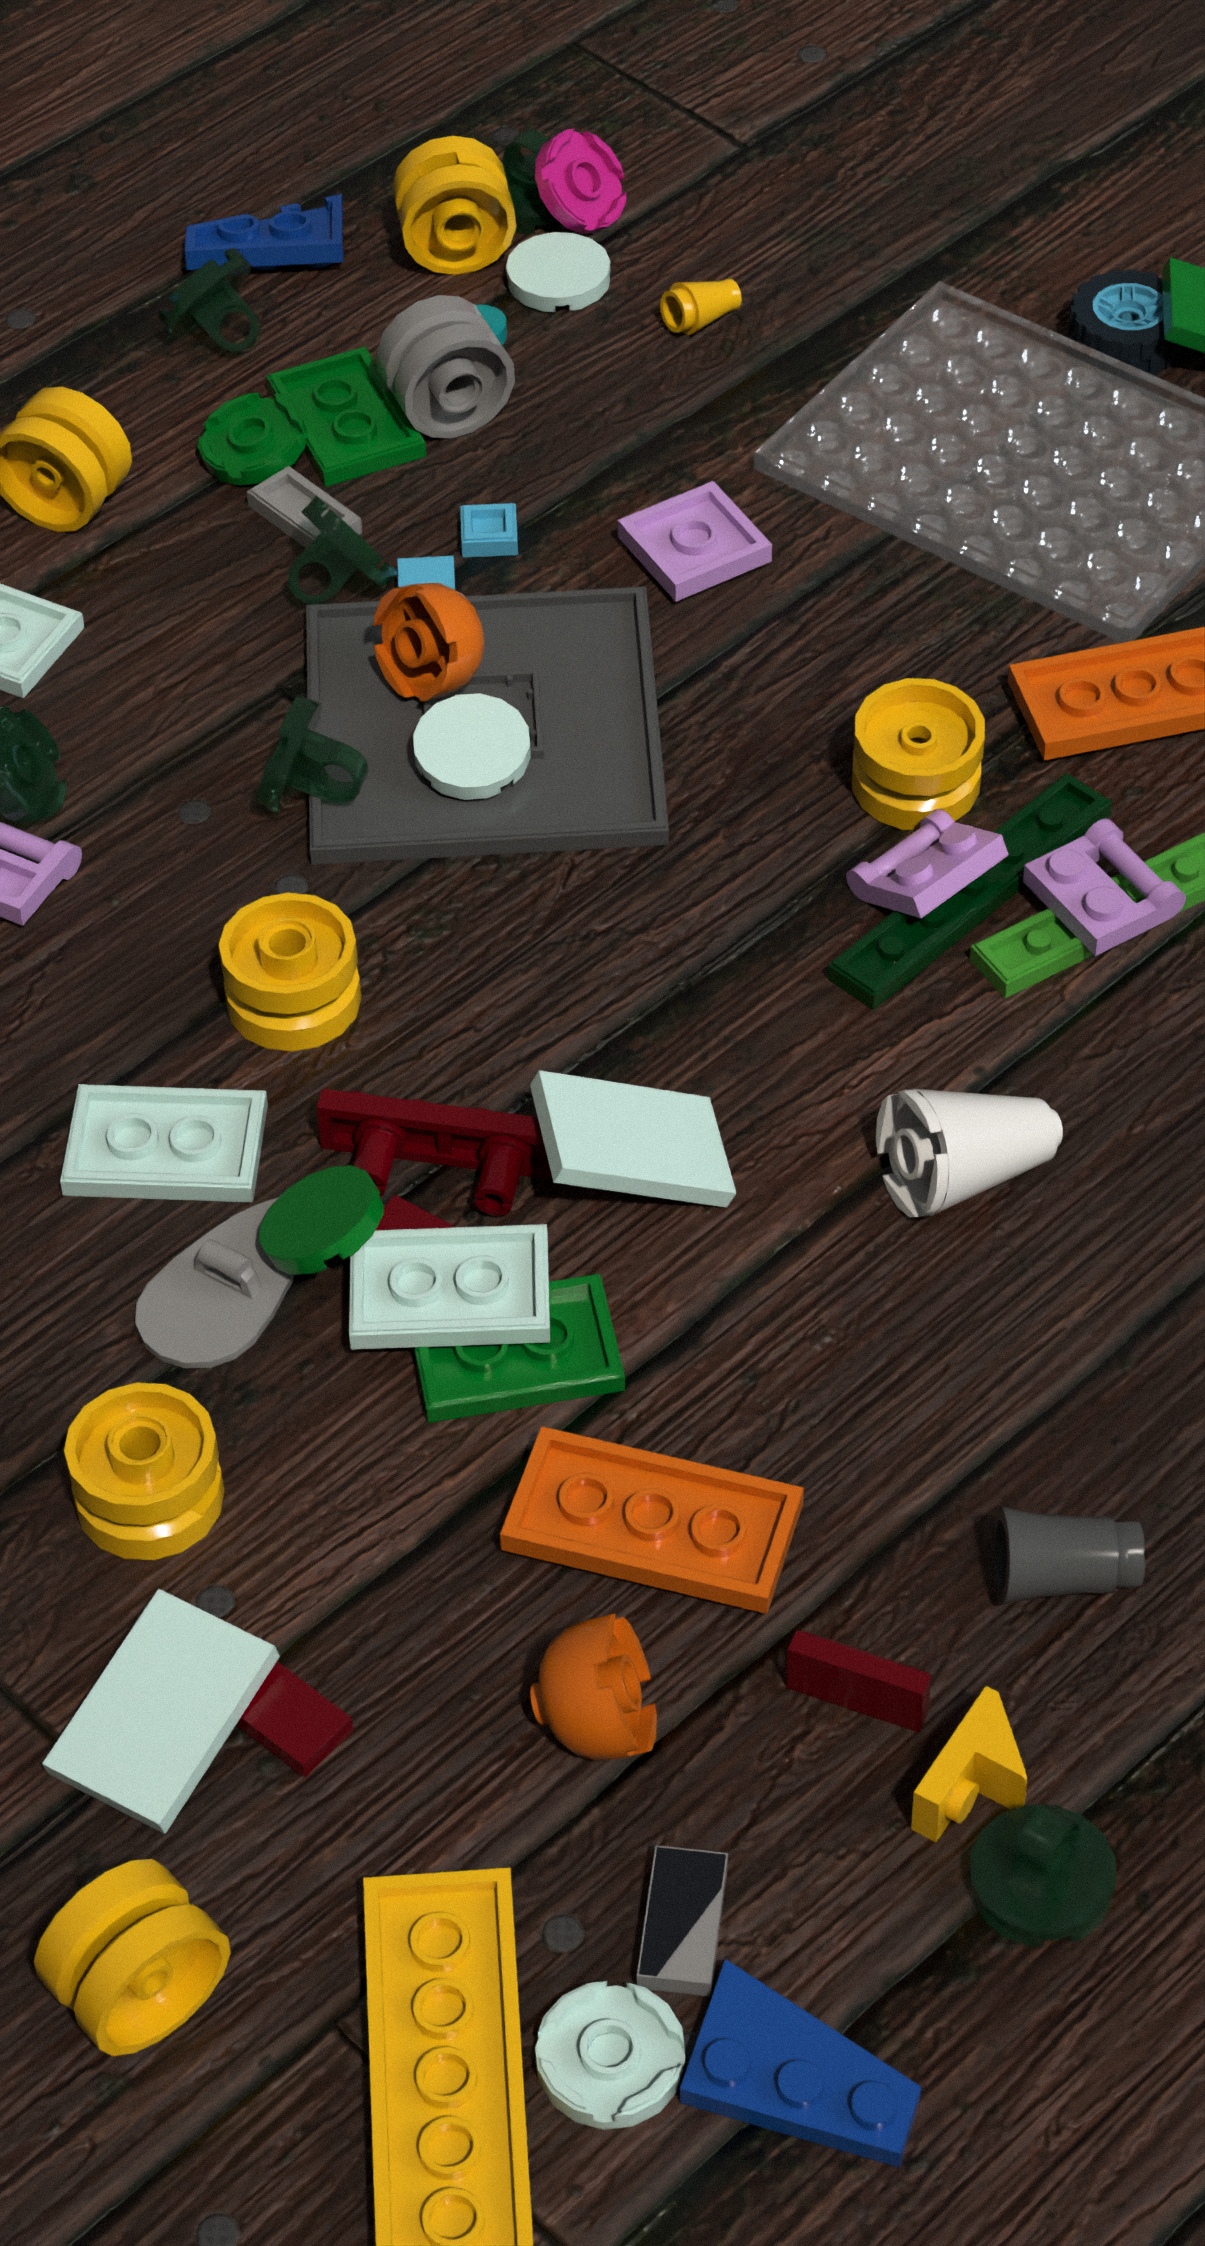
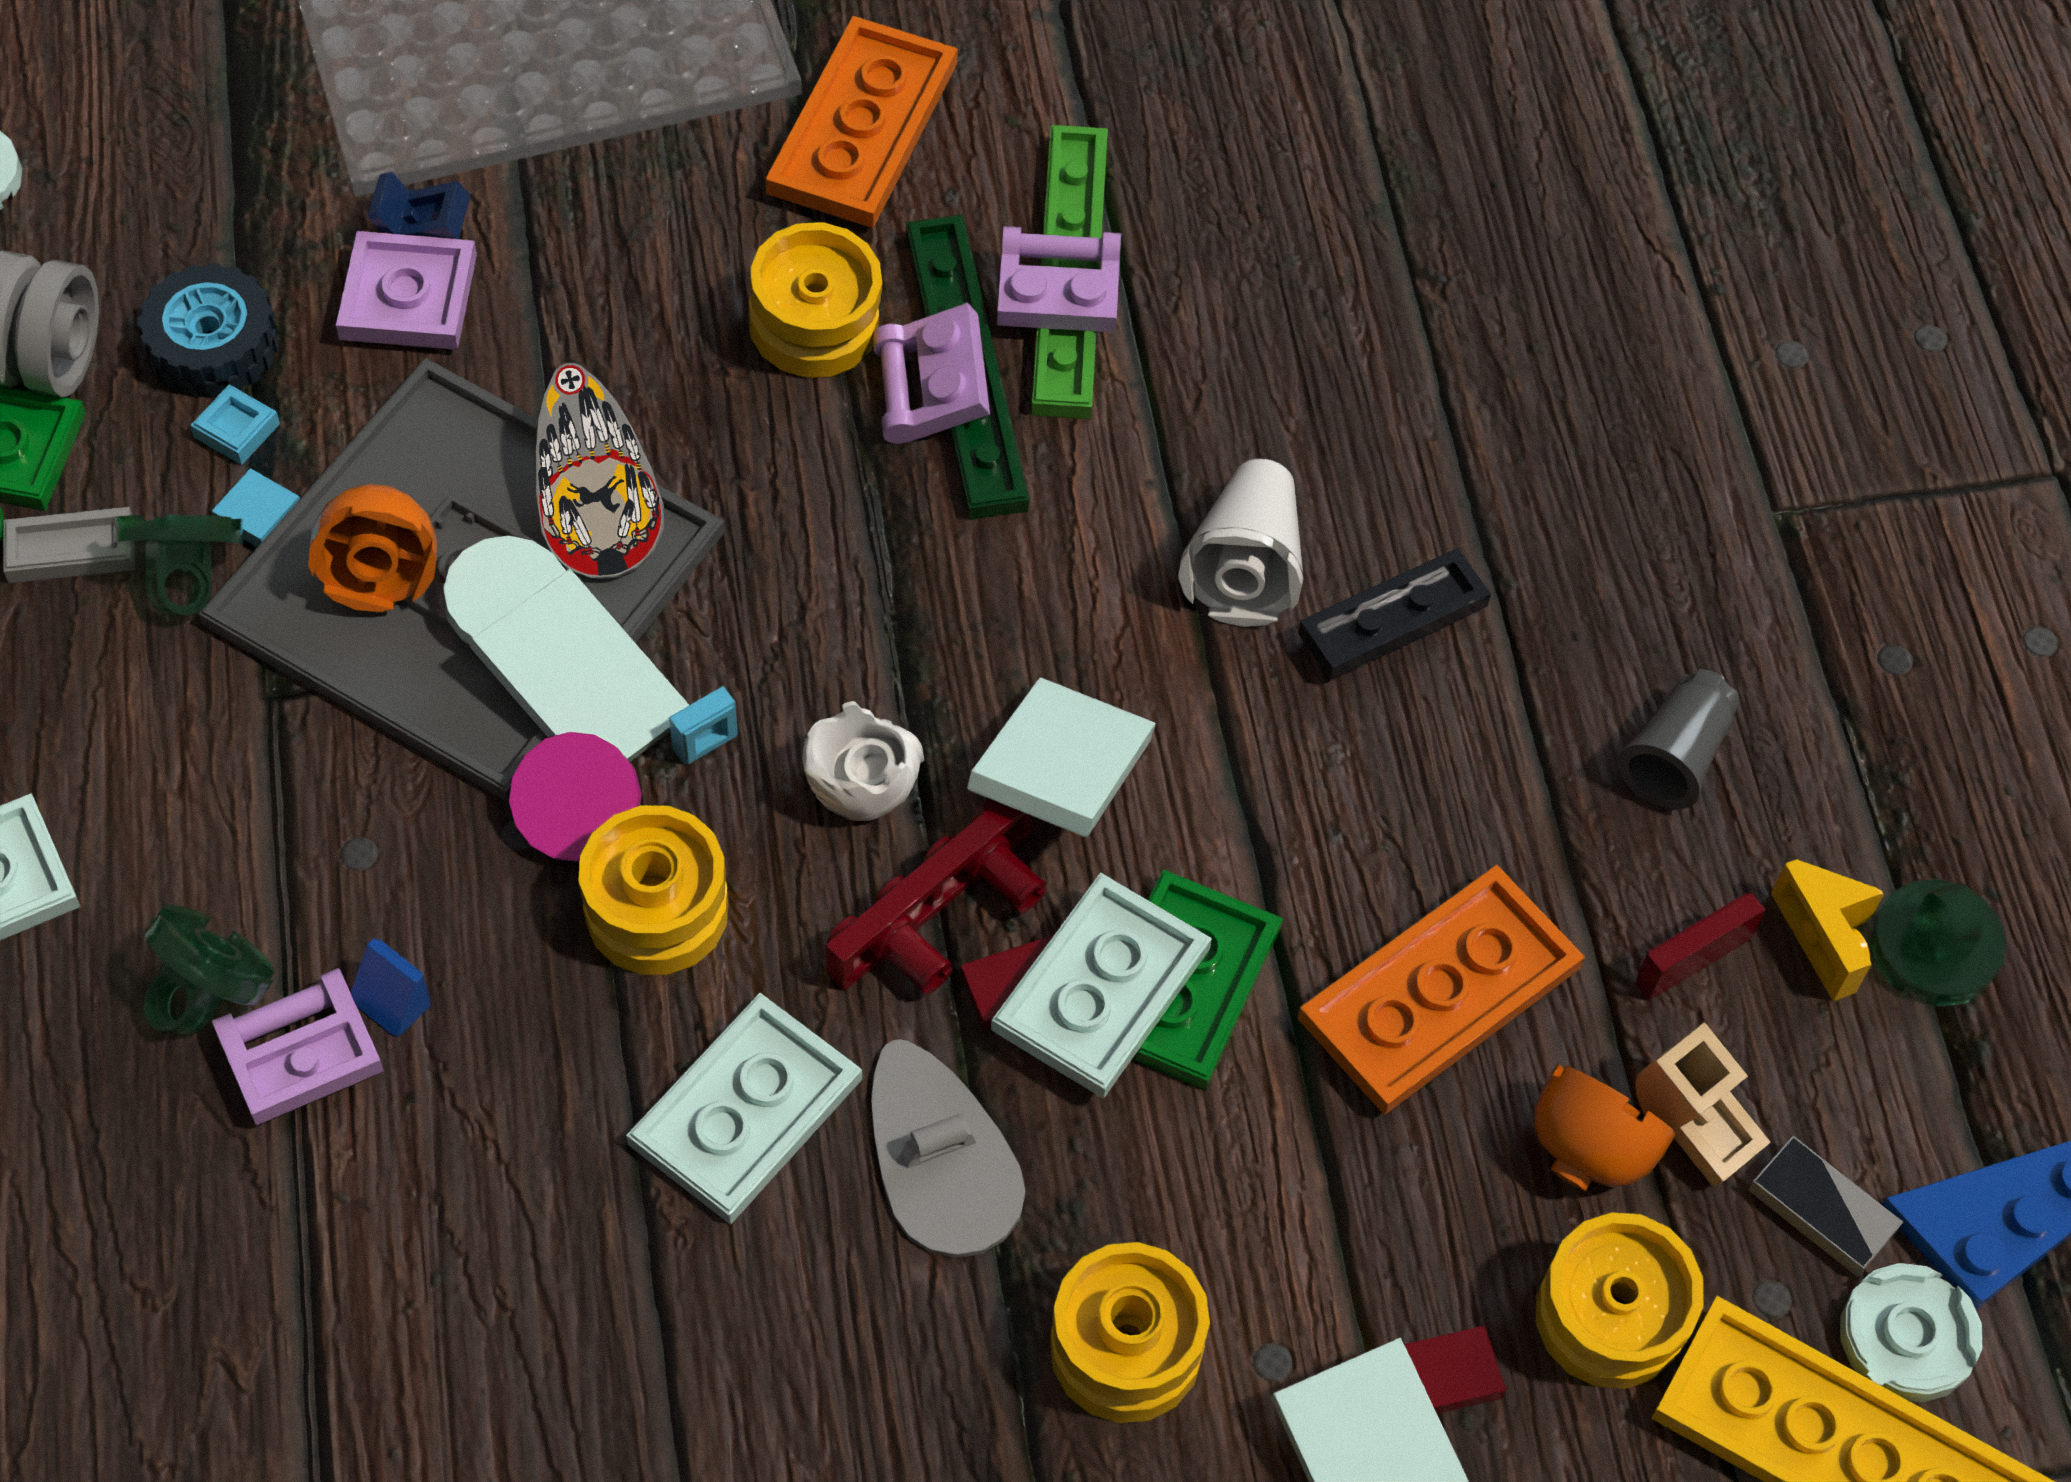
camera: 60 degrees left, 10 degrees up
(90, 886) = (389, 989): none -> blue slope
(302, 759) = (415, 728): clear green tile -> none
(321, 1218) = (962, 1034): green tile -> none
(342, 869) = (570, 790): none -> dark pink tile
(438, 827) = (578, 669): none -> light aqua tile
(439, 1787) = (1610, 1340): none -> yellow wheel
(466, 921) = (703, 726): none -> medium azure tile
(514, 1024) = (860, 763): none -> white hair
(550, 464) = (202, 302): none -> black wheel
(612, 724) = (593, 480): none -> shield
(687, 1754) = (1693, 1096): none -> tan brick
(696, 304) = (119, 106): yellow cone -> none
(762, 498) = (420, 212): none -> dark blue bracket
(999, 1290) = (1394, 613): none -> black plate

